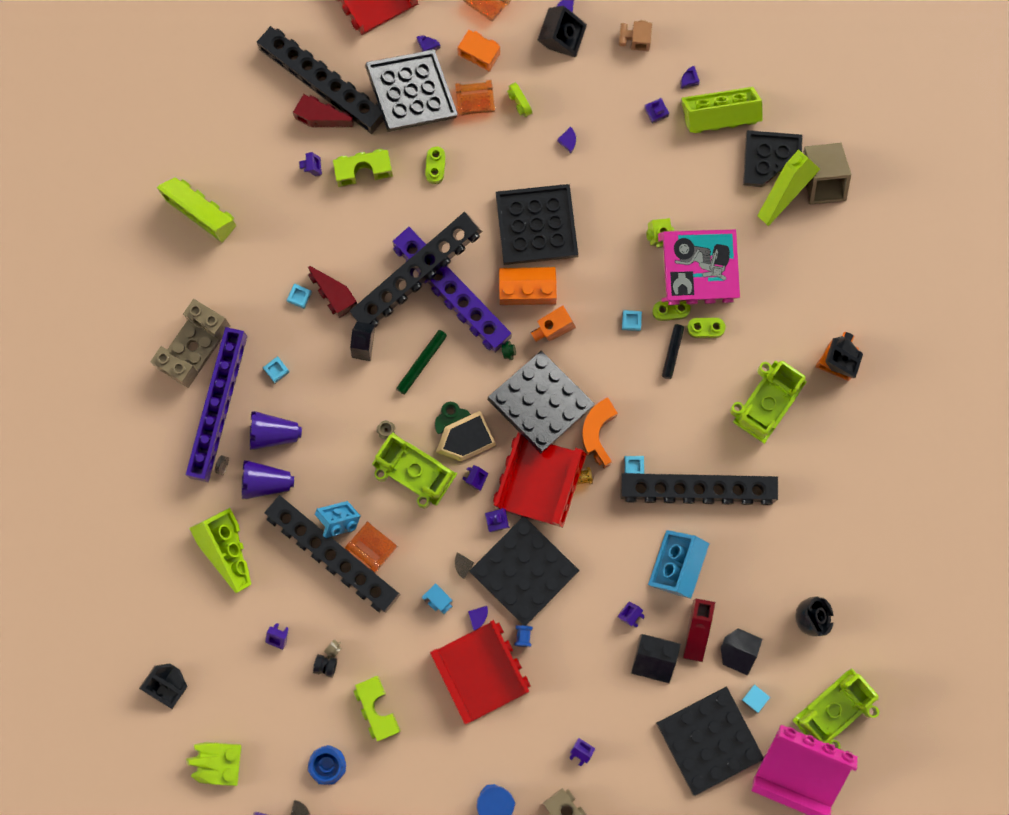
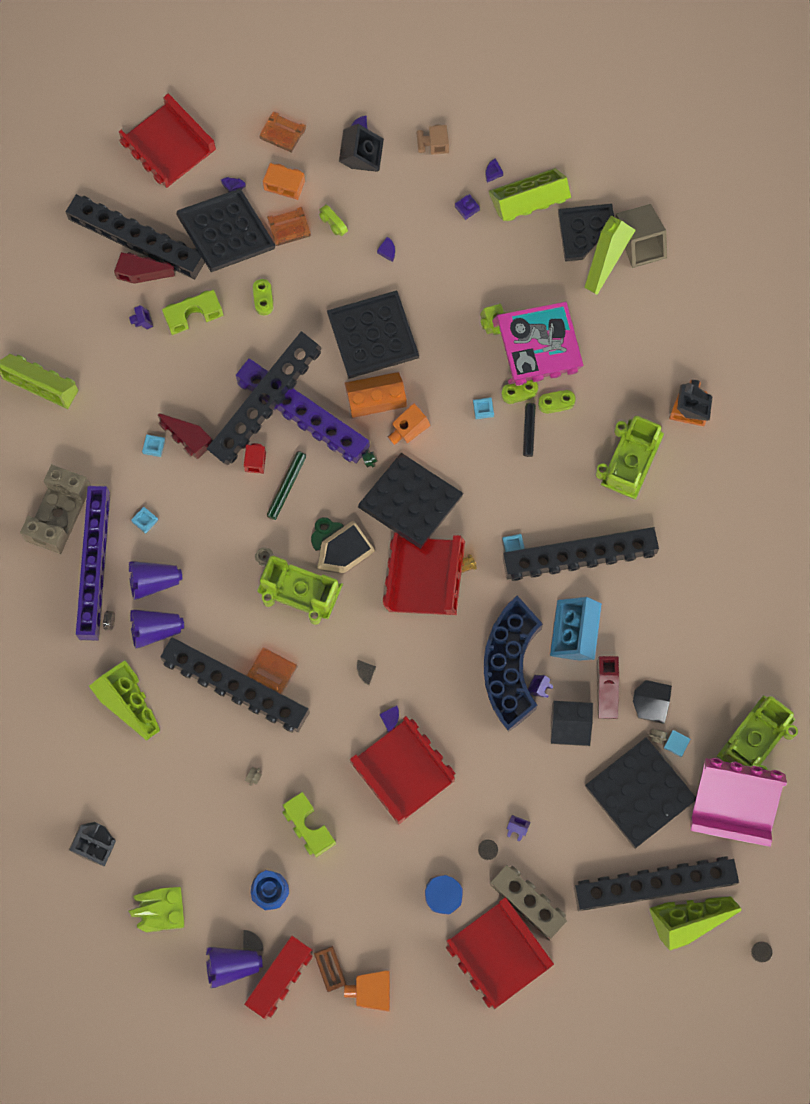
camera: 10 degrees left, 5 degrees down
(277, 637) = (195, 775): dark purple tile -> none
(325, 665) = (248, 793): black wheel -> none
(338, 518) = (234, 648): dark azure bracket -> none
(362, 341) = (225, 475): black slope -> none
(395, 329) = (255, 458): none -> red brick
(438, 599) = (347, 708): dark azure brick -> none
(476, 477) = (362, 584): dark purple tile -> none
(497, 520) = (390, 622): dark purple tile -> none
(523, 636) = (438, 727): blue bush -> none
(524, 571) = (426, 665): black plate -> none
(548, 767) = (488, 850): none -> clear smoke tile
(596, 418) = (469, 504): orange arch -> none
(601, 586) = (504, 663): none -> dark blue brick
(738, 687) = (658, 736): none -> dark tan plate
(814, 616) = (717, 652): black cylinder -> none

